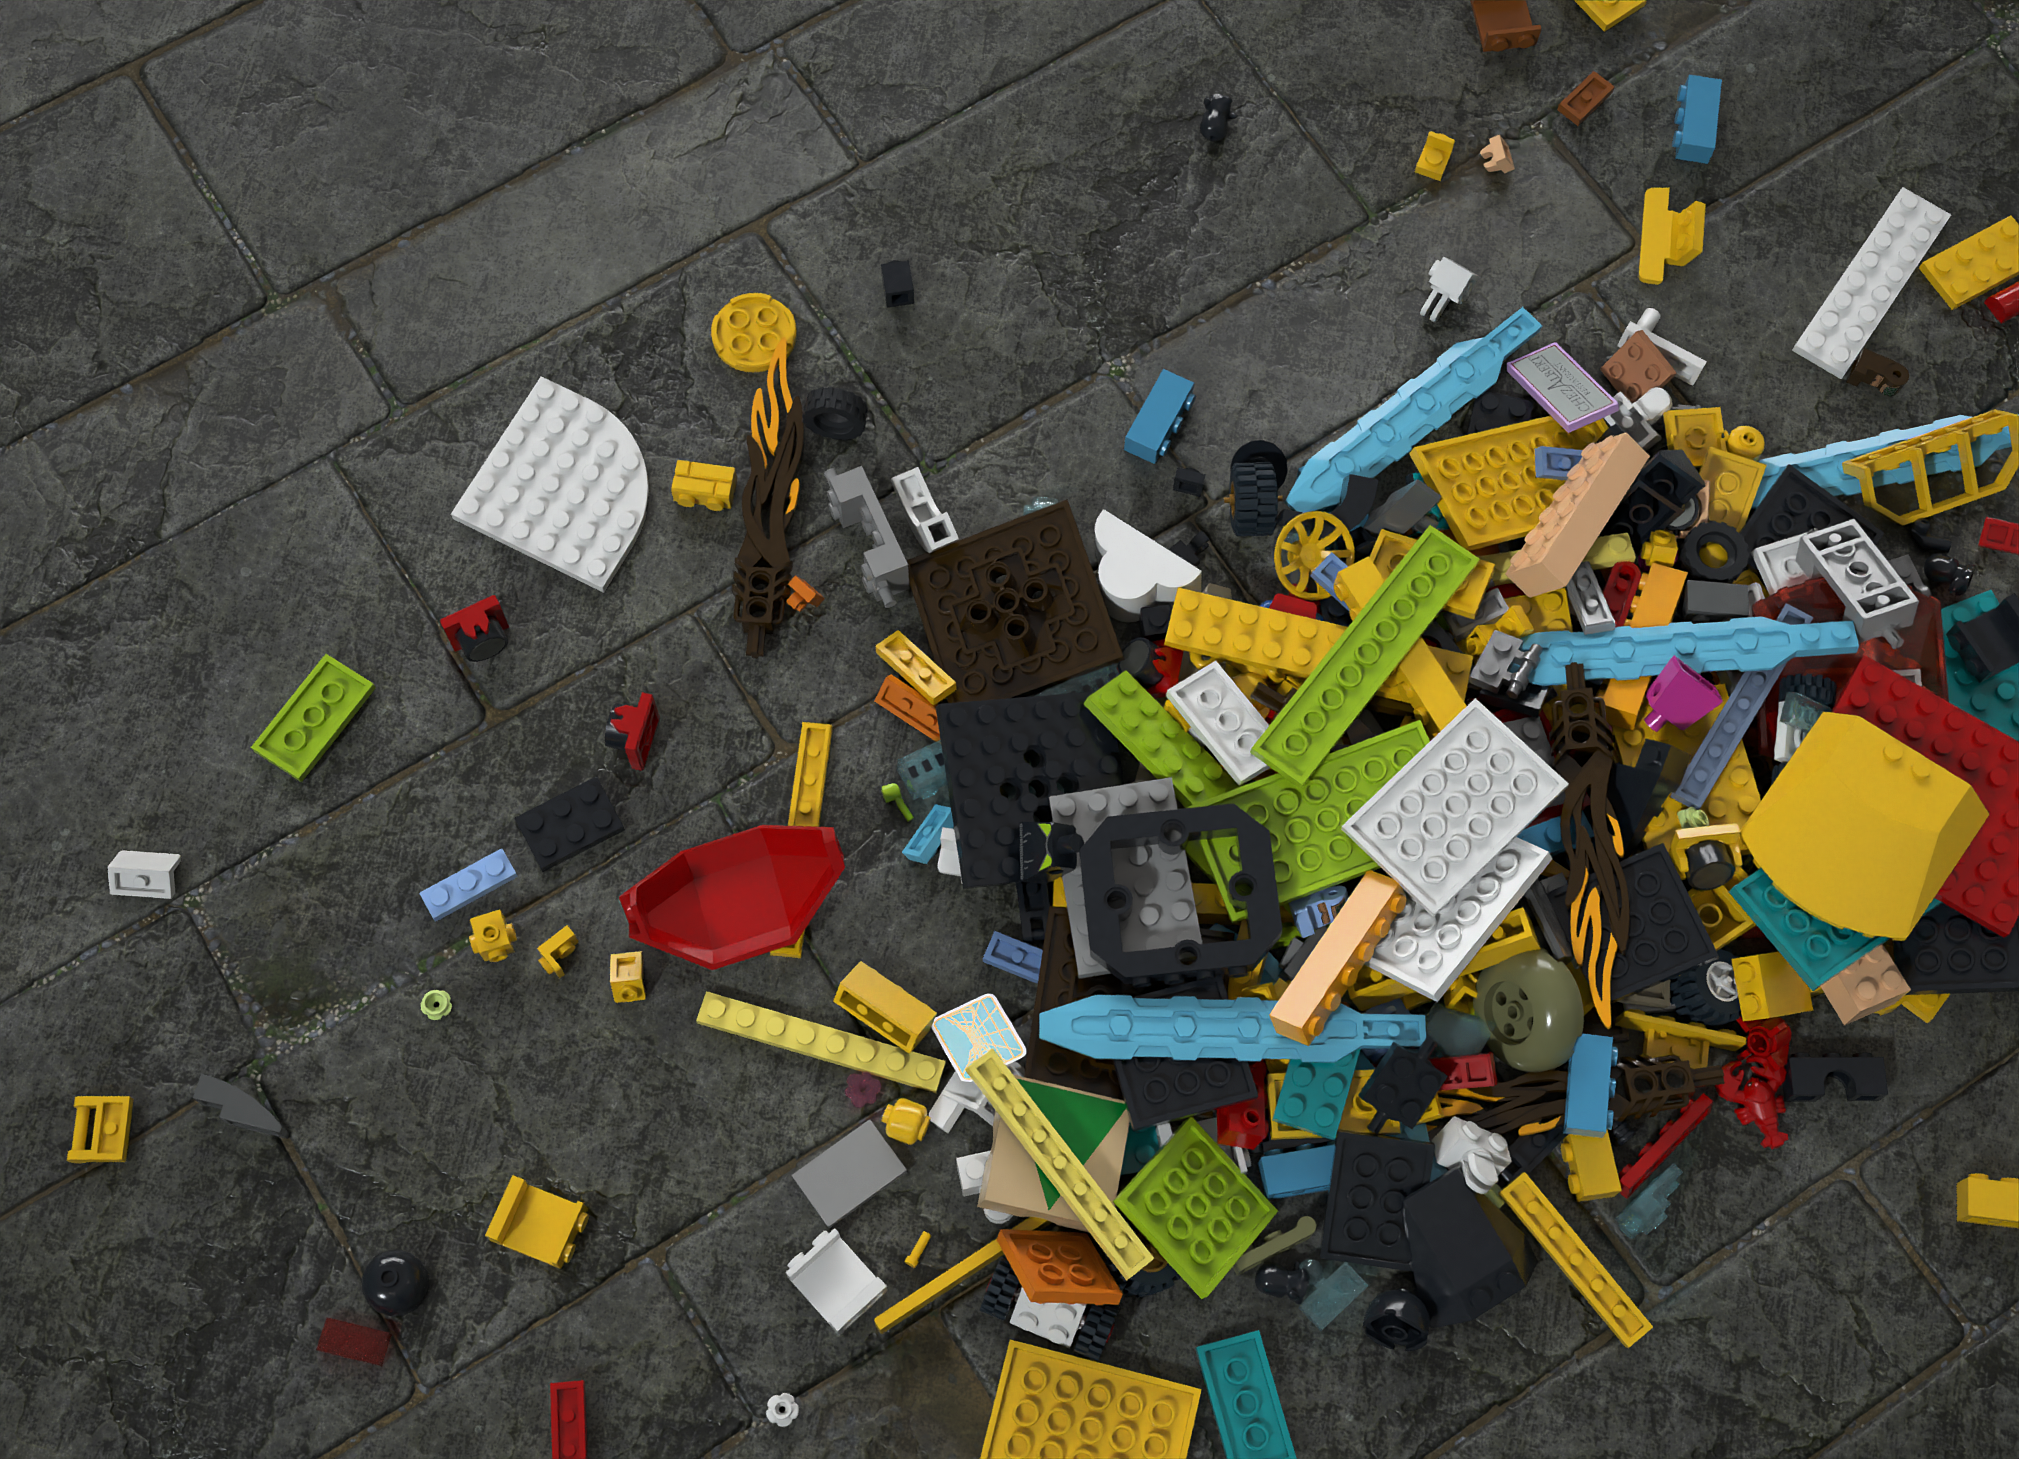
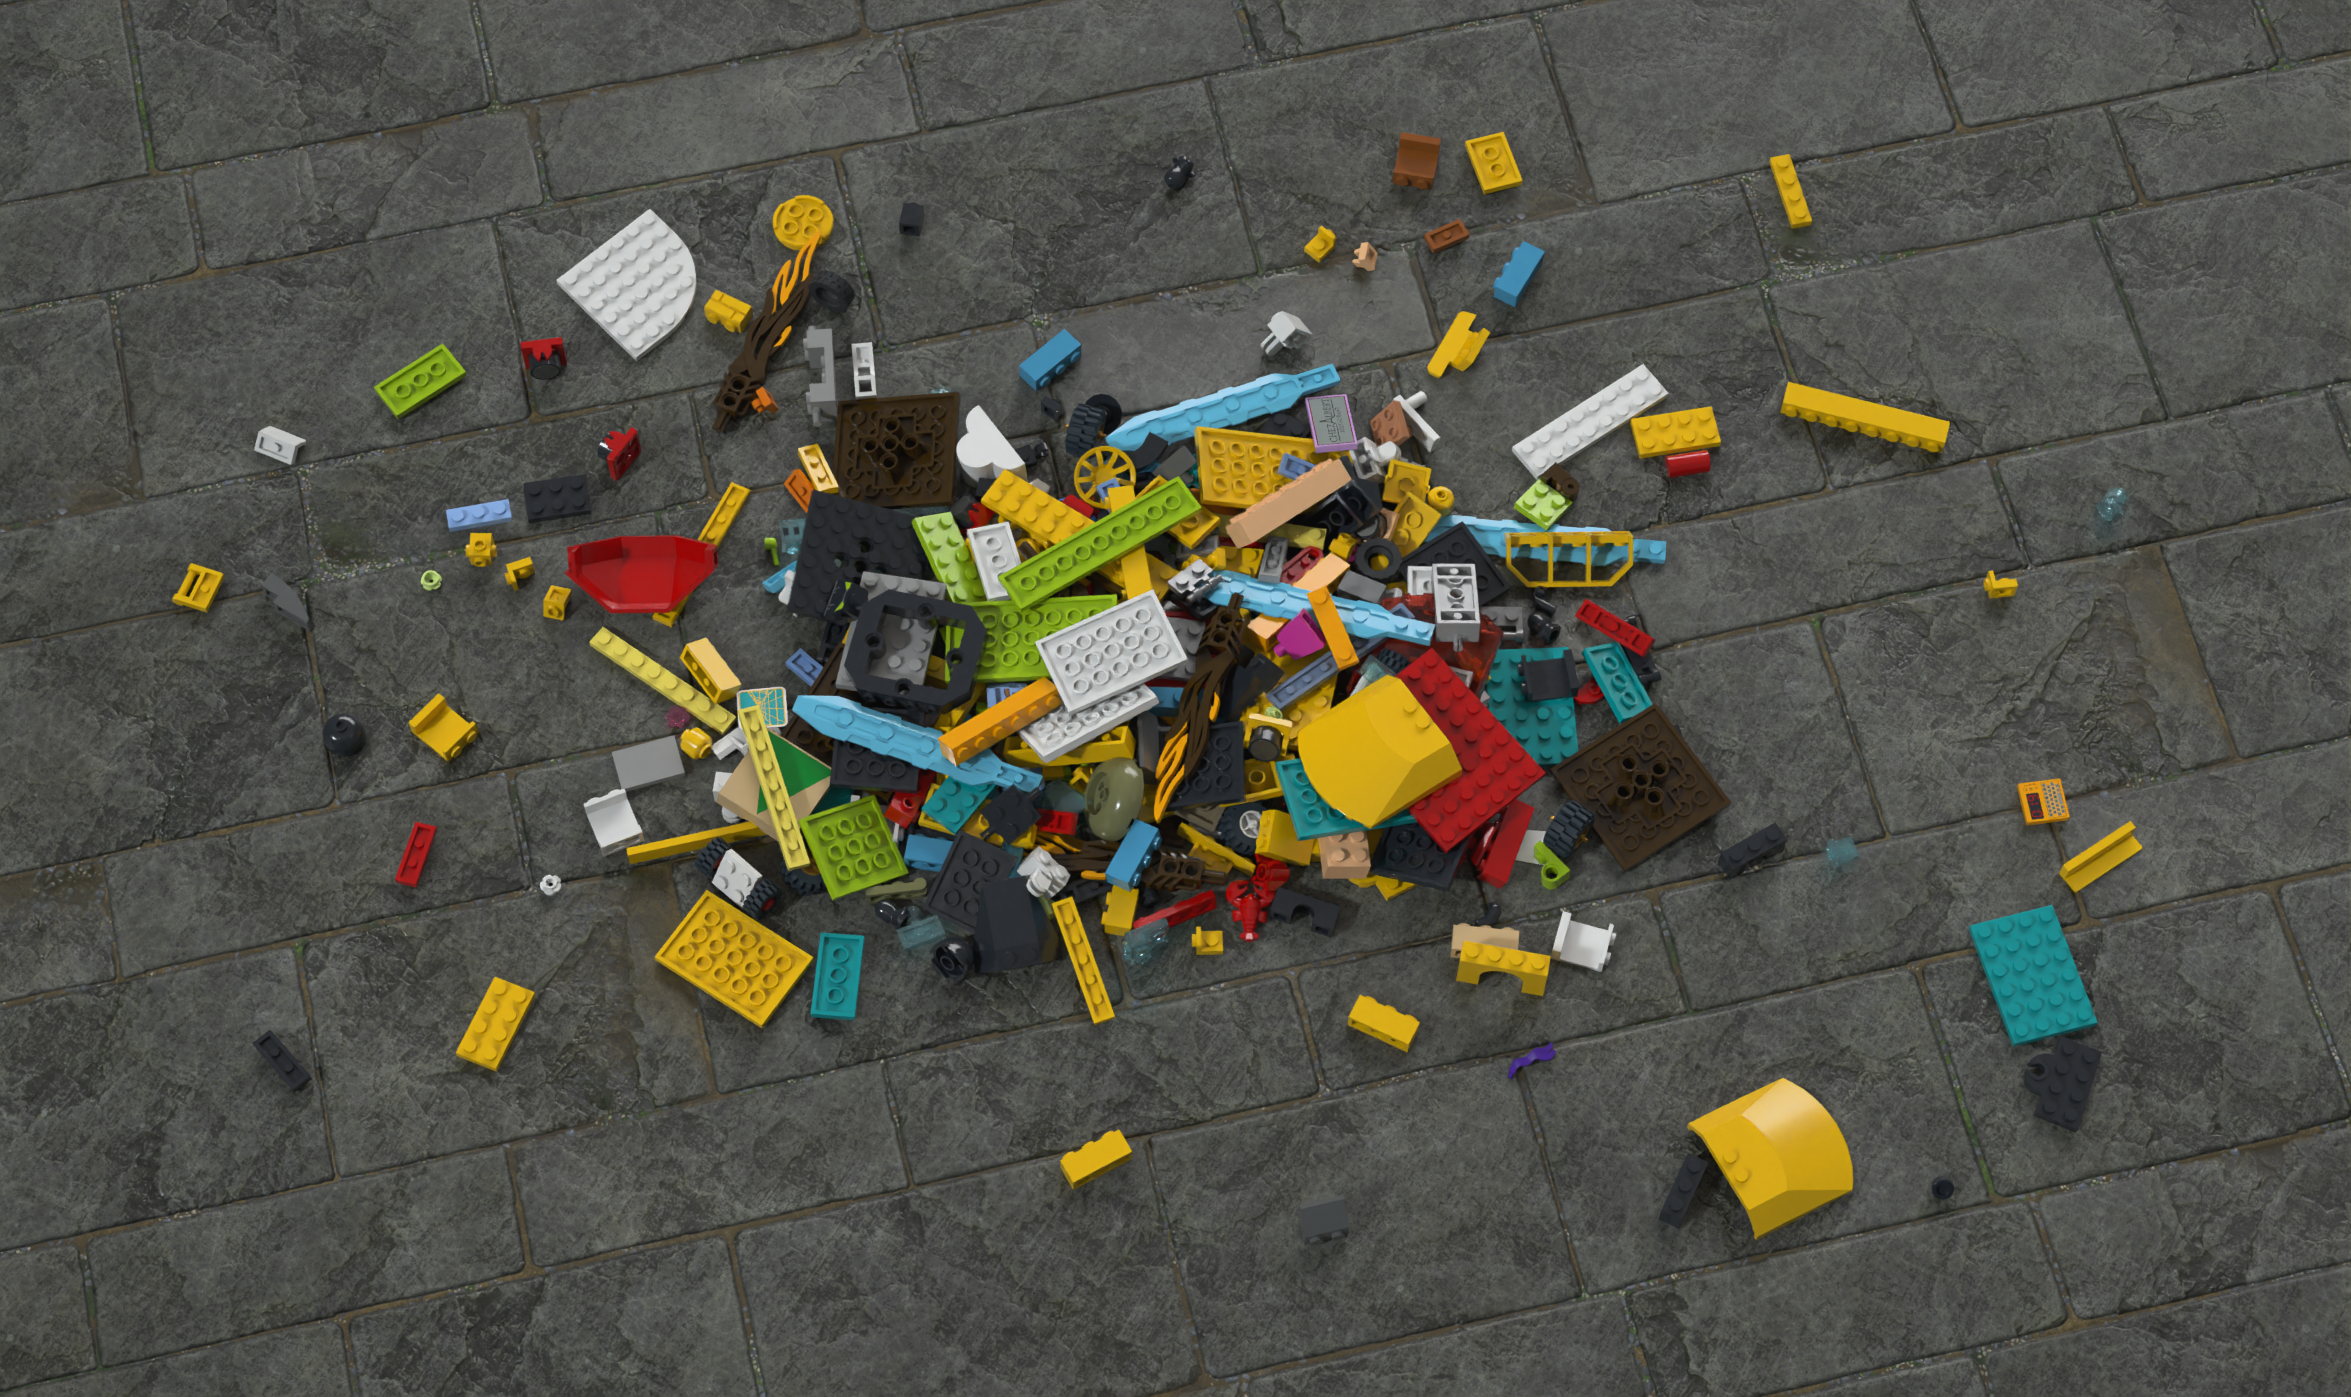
camera: 20 degrees right, 5 degrees down
(354, 1342) = (306, 761): clear red plate -> none
(912, 1260) = (666, 826): yellow piece -> none
(1059, 1267) = (751, 852): orange plate -> none
(1722, 670) = (1332, 628): none -> light orange plate
(1723, 1167) = (1207, 942): none -> yellow bracket
(1869, 409) = (1542, 505): none -> lime plate

